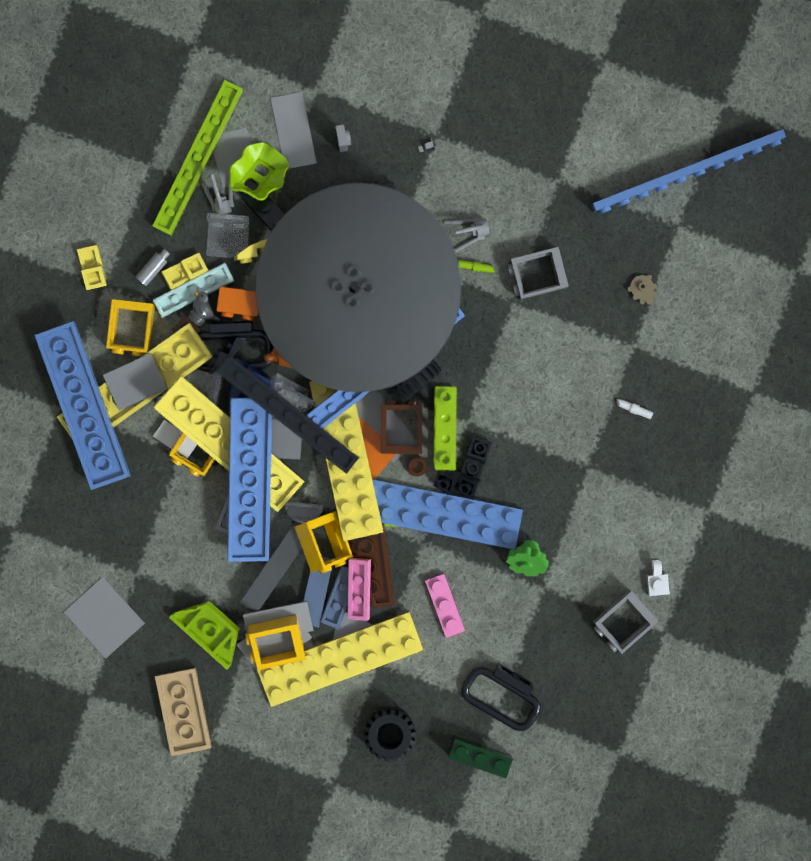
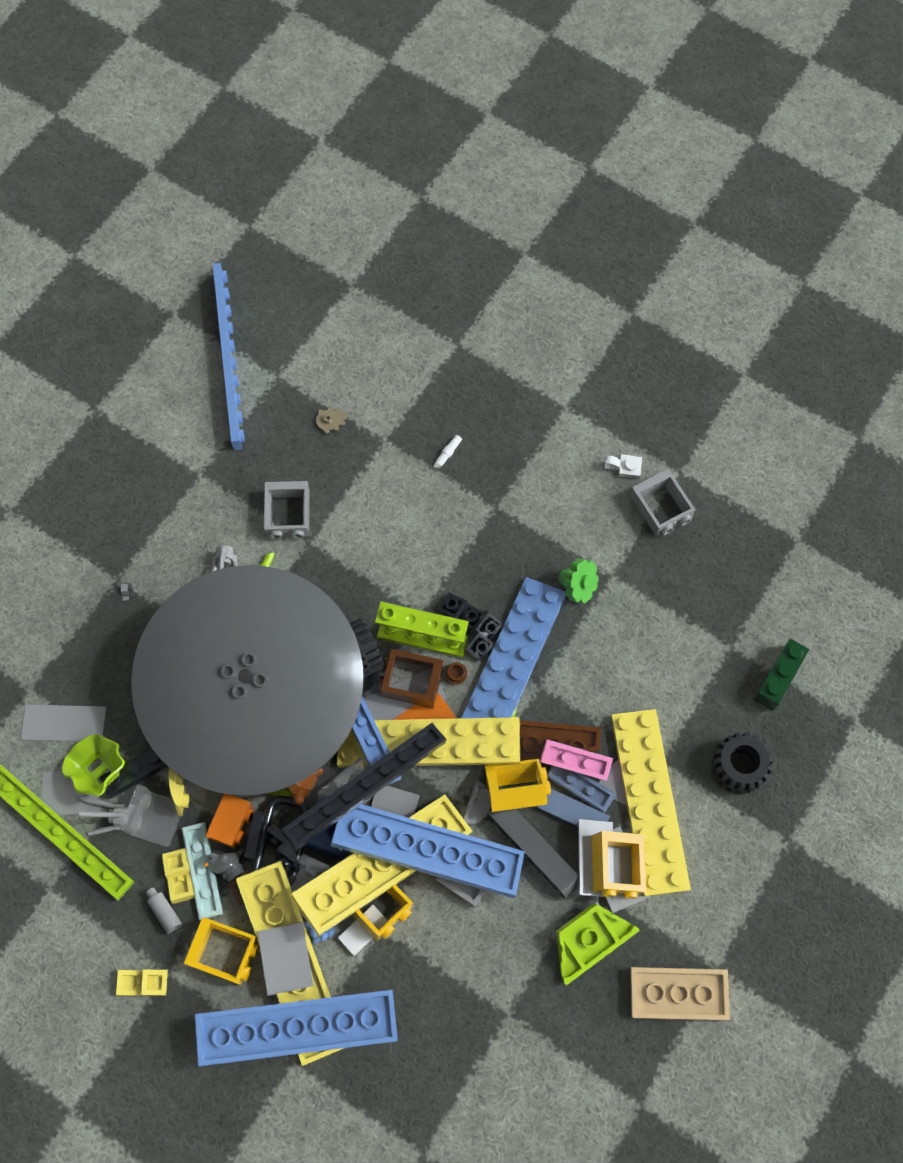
camera: 80 degrees left, 20 degrees down
(104, 617) = (551, 1066): light grey piece -> none
(343, 138) = (86, 668): light grey plate -> none
(444, 605) = (611, 677): bright pink plate -> none
(510, 681) = (706, 626): black bar -> none

